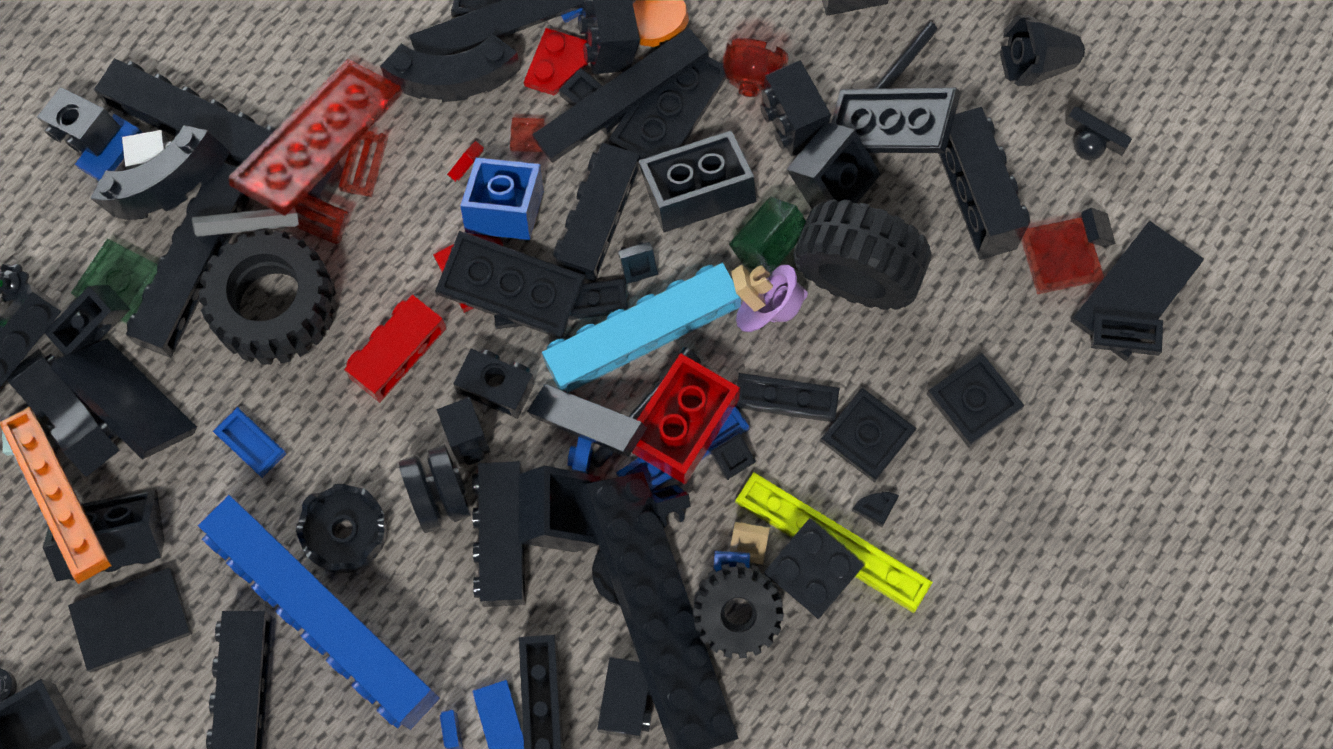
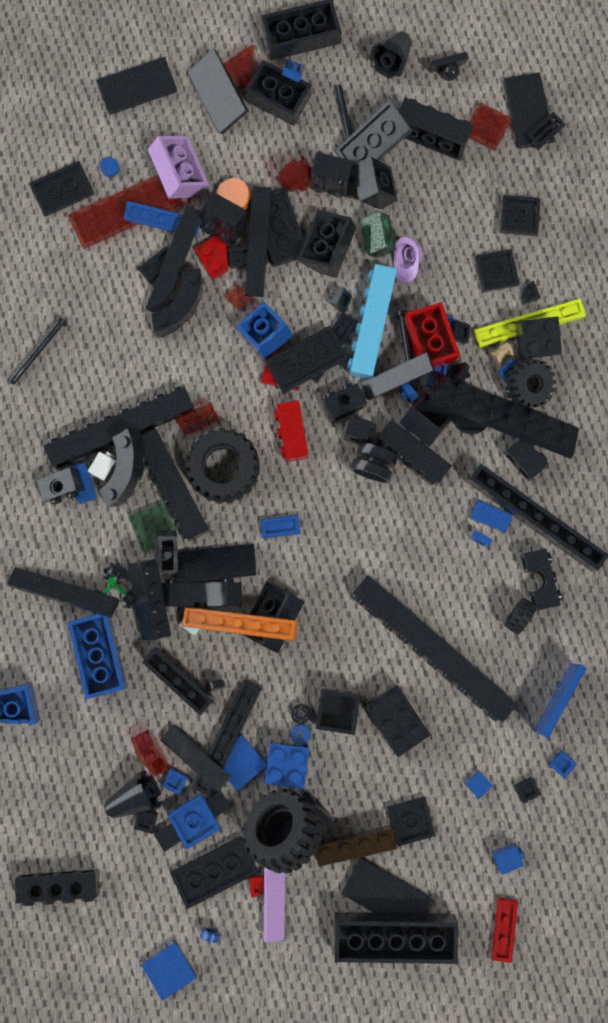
camera: 50 degrees left, 10 degrees up
(129, 620) = (318, 636): black tile -> none
(243, 222) = (180, 447): light grey tile -> none
(311, 606) = (389, 552): blue brick -> none
(315, 137) = (165, 386): clear red plate -> none
(325, 511) = (358, 503): black plate -> none
(355, 188) = (180, 365): clear red tile -> none
(465, 161) = (228, 333): red tile -> none
(597, 211) = (303, 296): black brick -> none
(752, 285) = (394, 261): tan tile -> none
(787, 397) = (454, 287): black tile -> none
(862, 254) = (427, 202): black tyre -> none
(1098, 227) = (490, 101): black tile -> none

